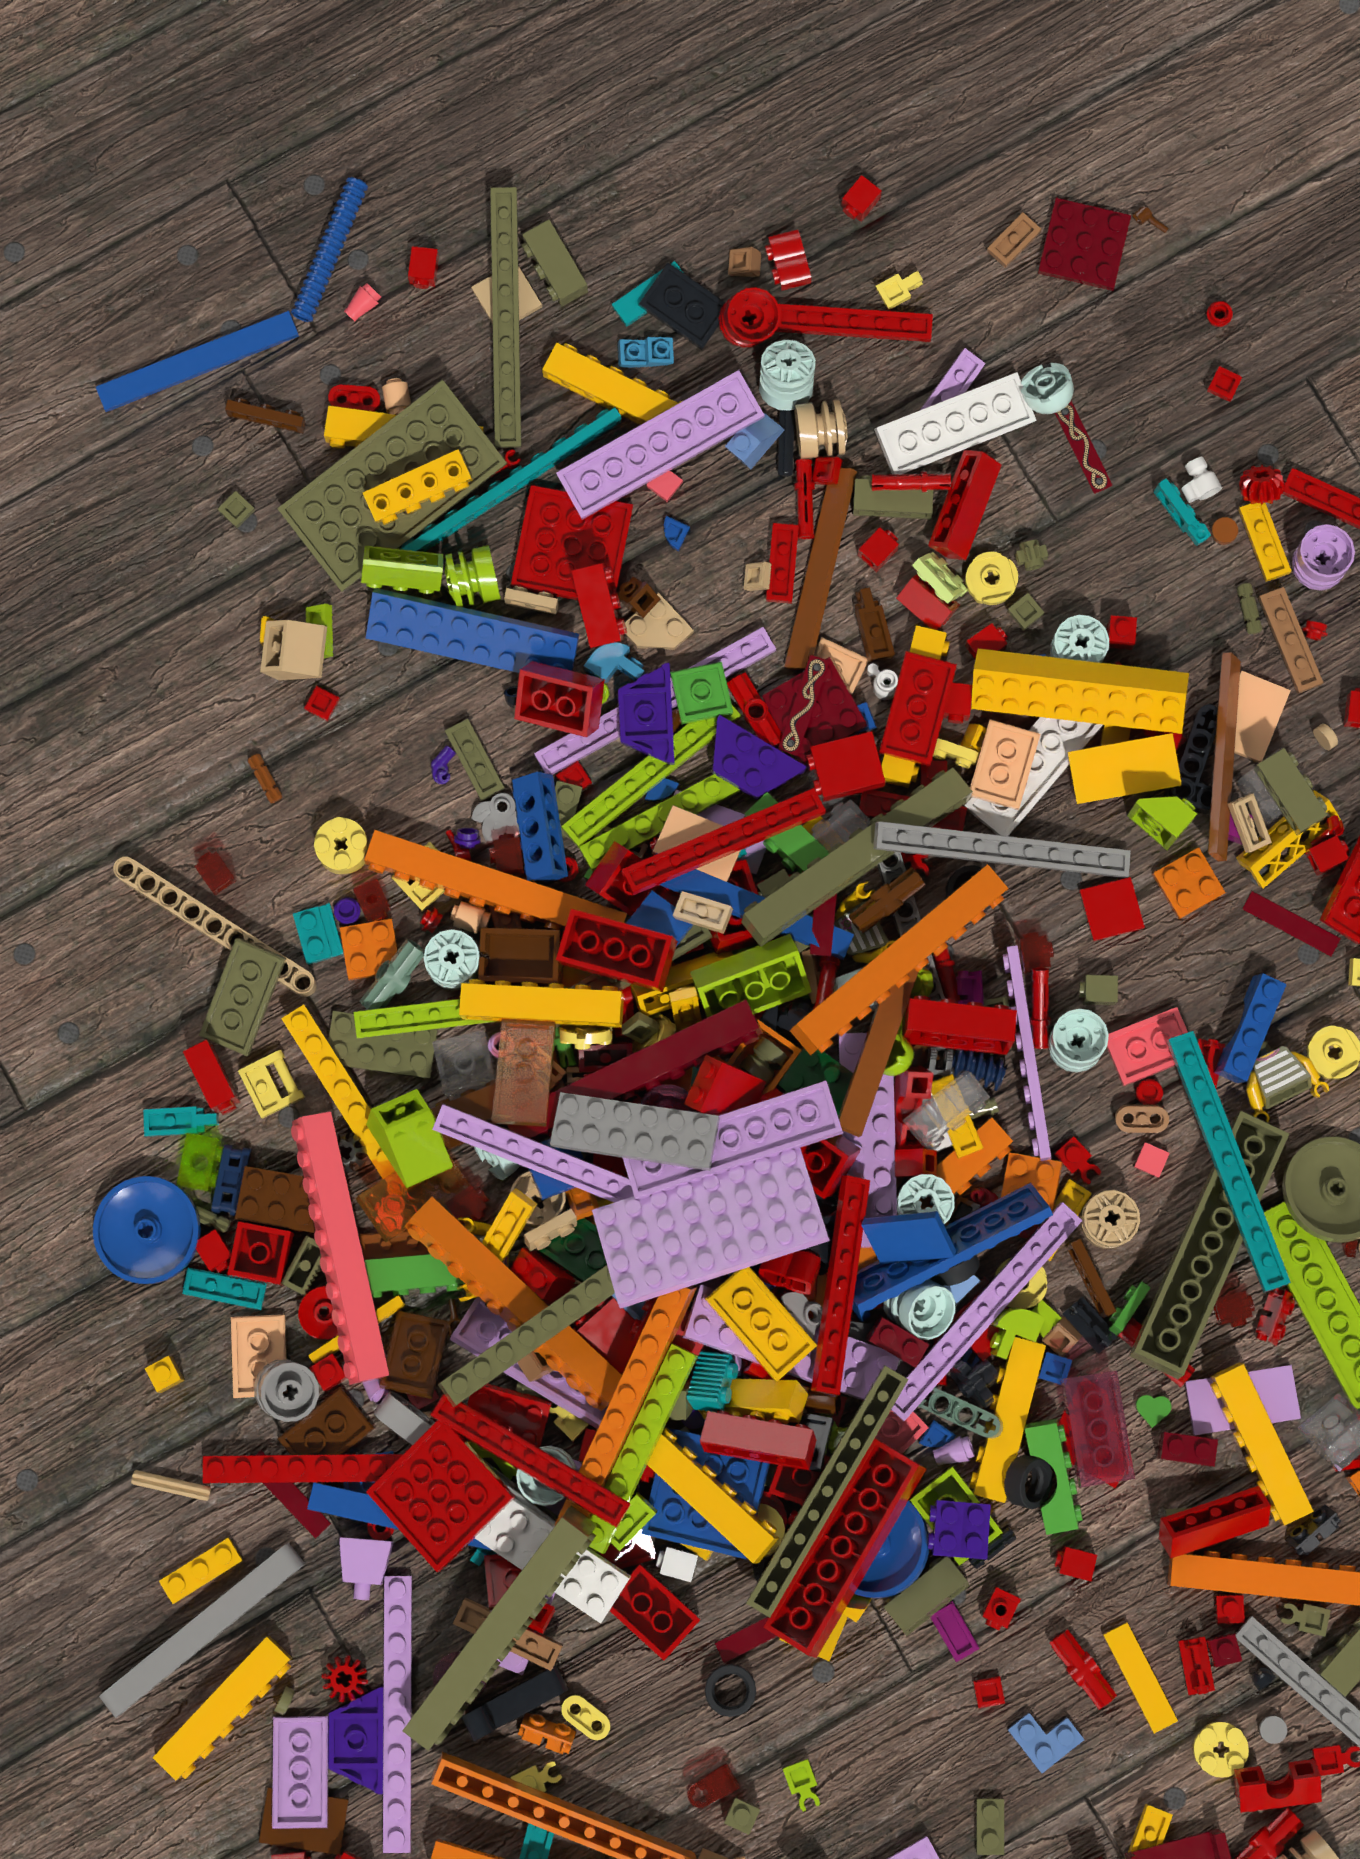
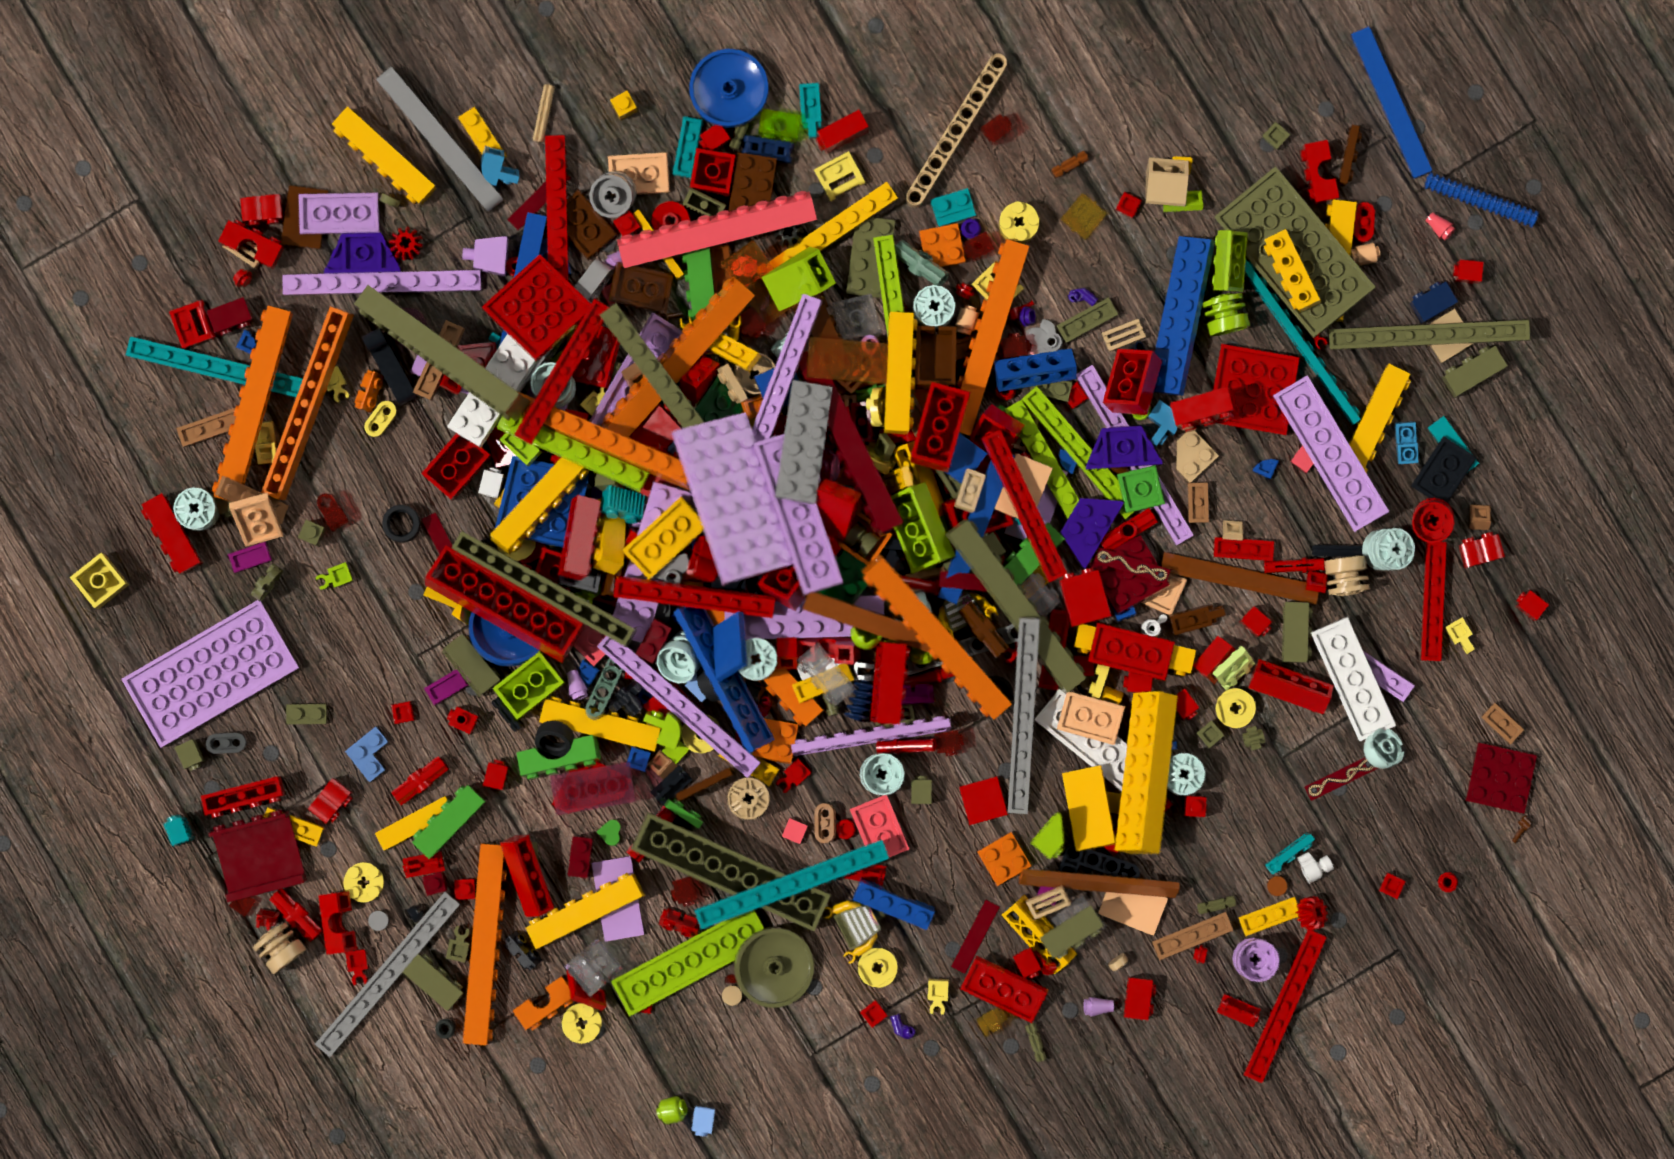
camera: 90 degrees right, 5 degrees up
(242, 996) = (903, 152): olive tile -> none
(244, 1555) = (493, 170): none -> dark azure brick
(309, 454) = (1320, 189): none -> red arch
(335, 762) = (1083, 216): none -> clear yellow piece
(462, 313) = (1433, 302): none -> dark blue brick
(487, 692) = (1139, 329): none -> tan tile
(521, 598) = (1209, 368): tan plate -> none
(632, 591) = (1217, 435): reddish brown brick -> none
(719, 620) = (1198, 503): none -> medium nougat plate
(754, 441) = (1337, 526): medium blue slope -> none
(911, 482) = (1306, 651): red pin -> none
(959, 1529) = (518, 687): dark purple plate -> none
(1110, 1794) = (330, 801): none -> red brick
(1136, 1625) = (449, 821): none -> bright green brick

